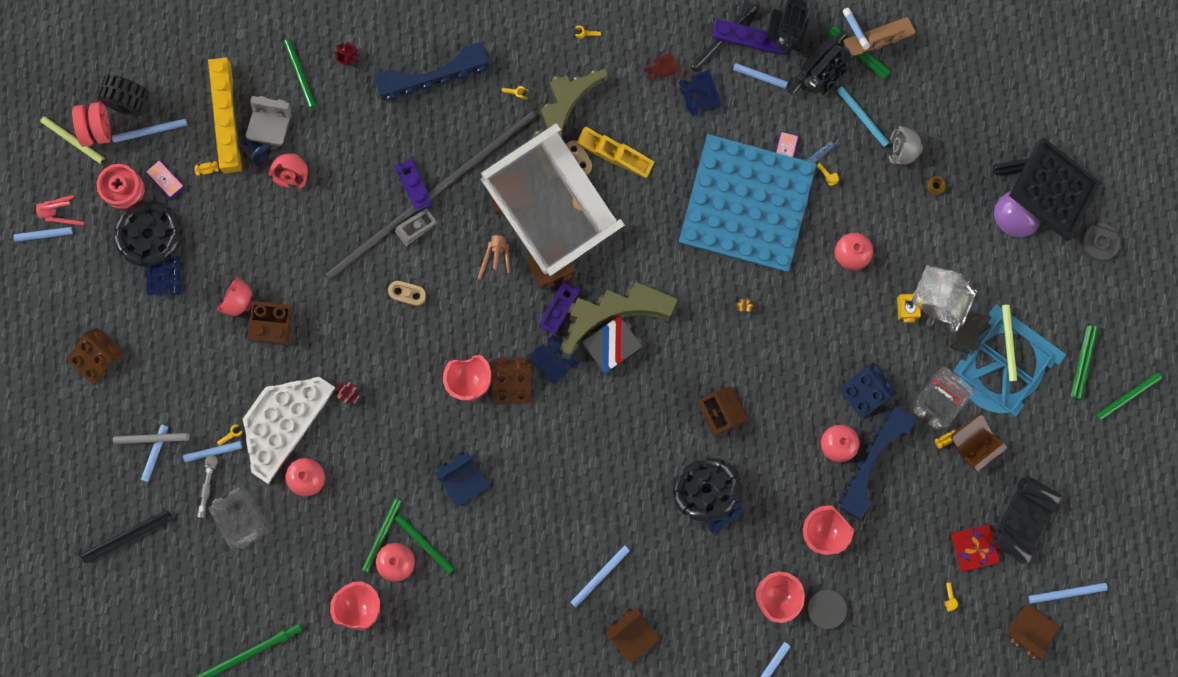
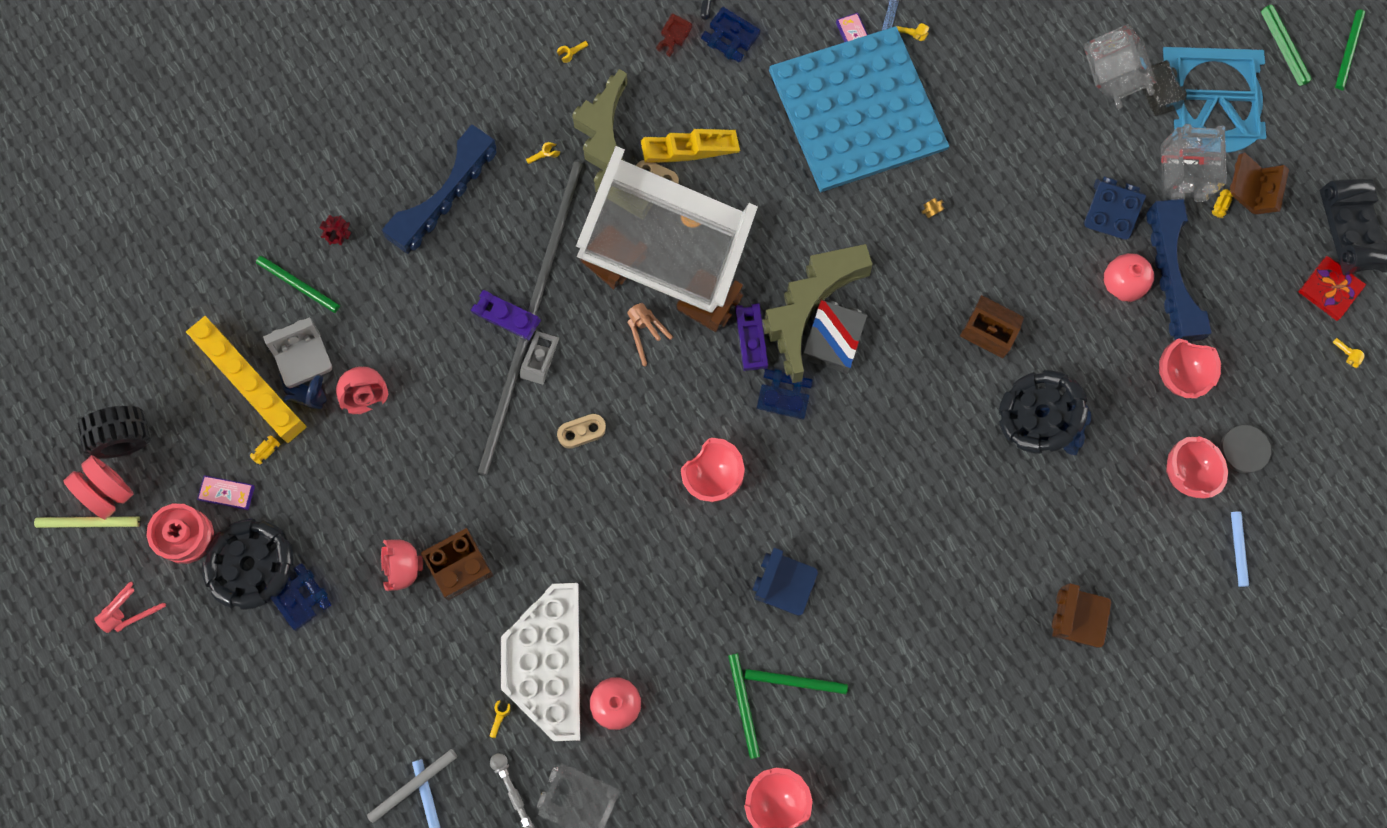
camera: 40 degrees left, 5 degrees down
(43, 234) = (124, 648): light blue bar -> none
(94, 354) = (279, 739): reddish brown bracket -> none
(149, 130) = (170, 453): light blue bar -> none
(212, 451) = (494, 747): light blue bar -> none
(347, 392) = (595, 579): dark red gear -> none
(395, 562) = (780, 723): coral cylinder -> none
(511, 380) = (760, 443): reddish brown bracket -> none
(600, 576) = (1001, 580): light blue bar -> none
(854, 251) = (995, 85): coral cylinder -> none
(907, 308) = (1089, 102): yellow brick -> none
(1009, 343) = (1235, 100): yellowish green bar -> none

